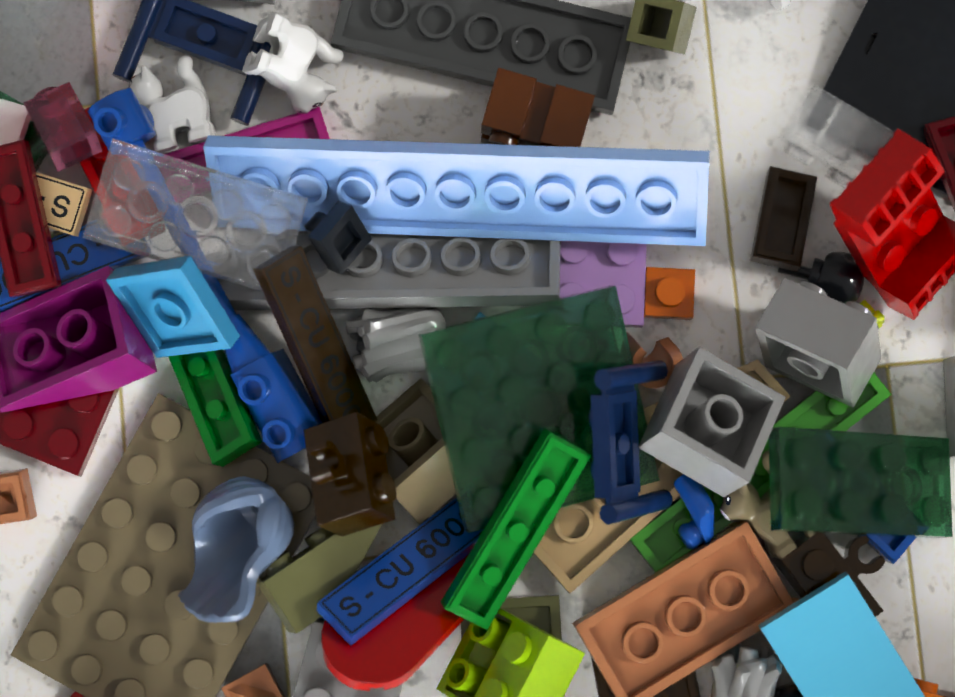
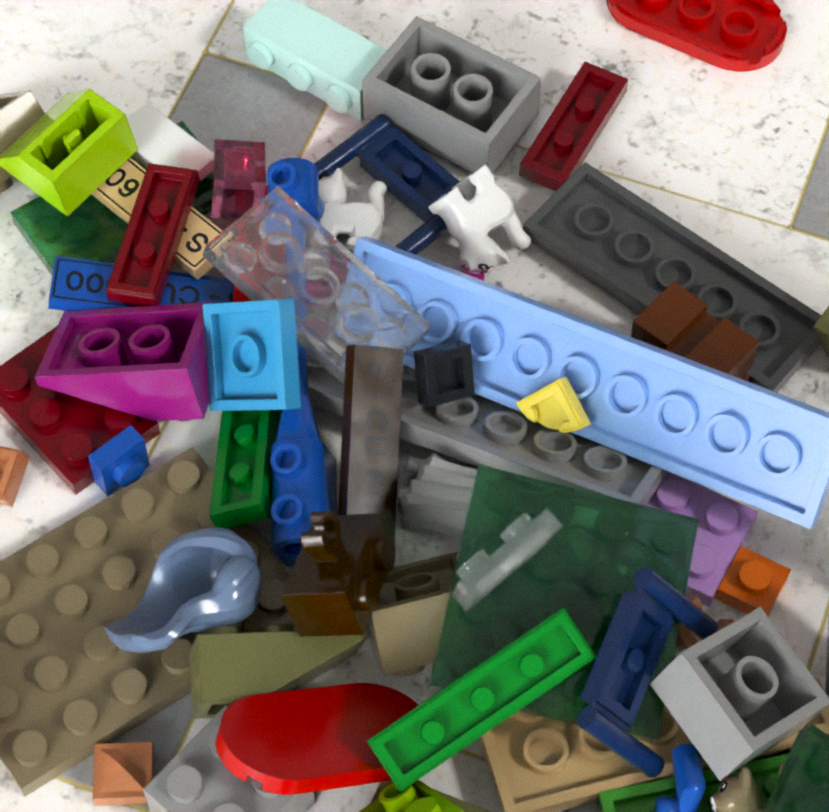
camera: 30 degrees right, 25 degrees down
(106, 438) = (119, 461): none -> blue plate
(398, 574) = (329, 698): blue tile -> none
(448, 226) = (555, 407): none -> light yellow tile
(493, 396) = (486, 572): none -> clear plate

